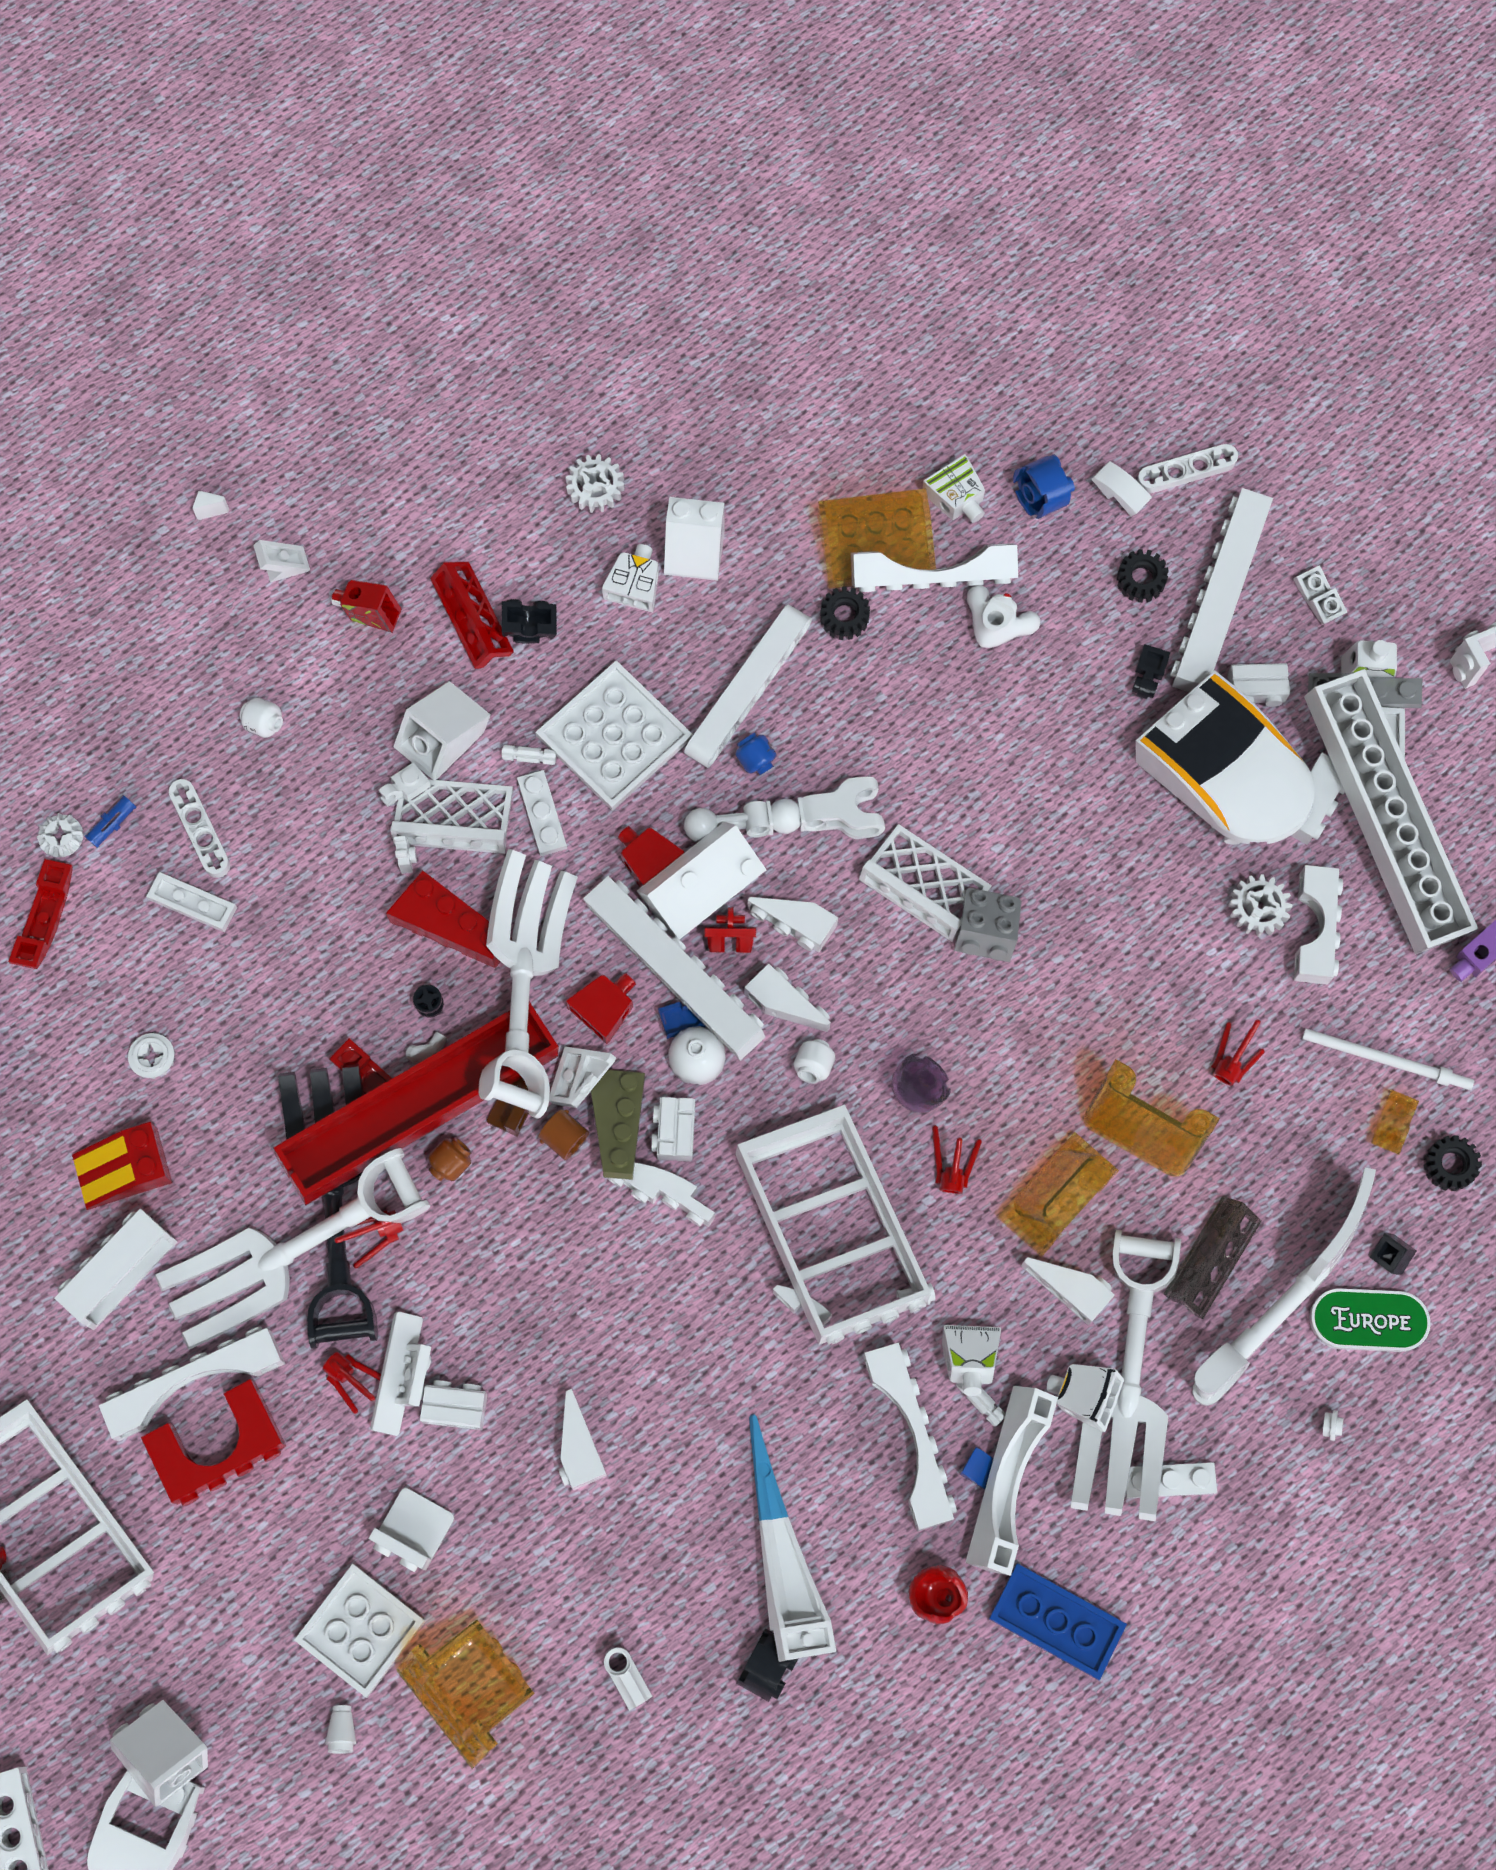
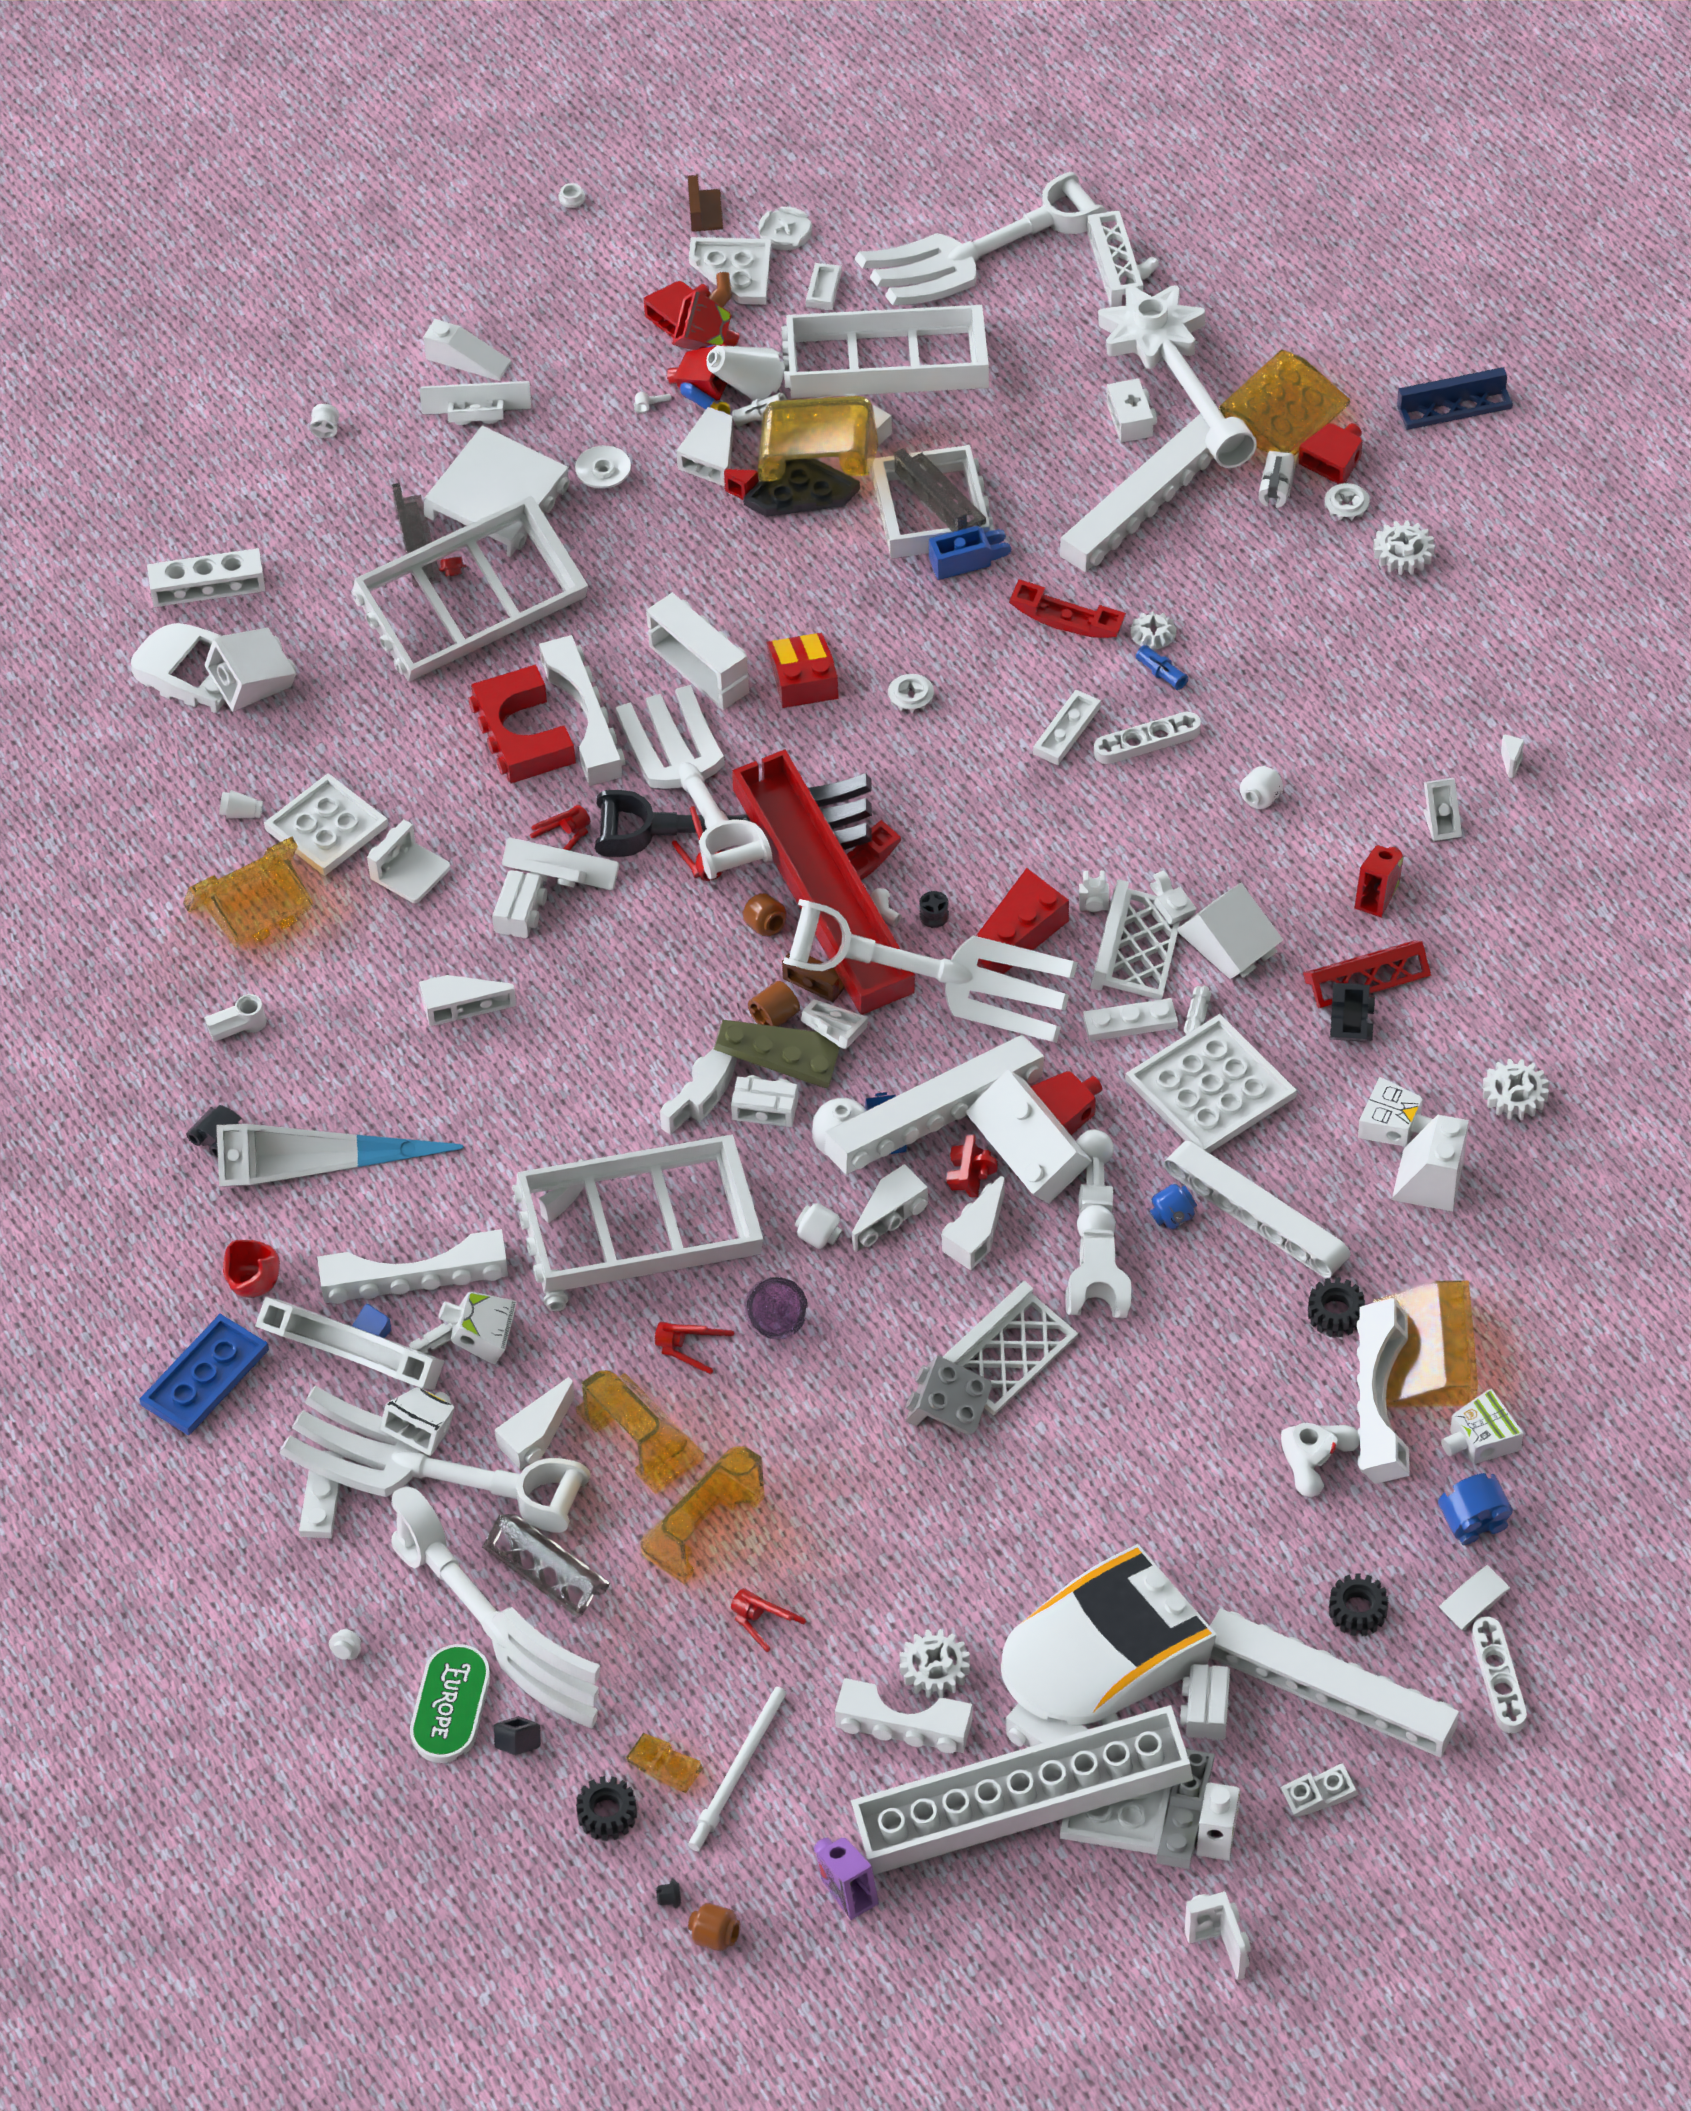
camera: 100 degrees right, 20 degrees down
(603, 1005) = (905, 1051): red torso -> none
(1151, 665) = (1243, 1598): black plate -> none

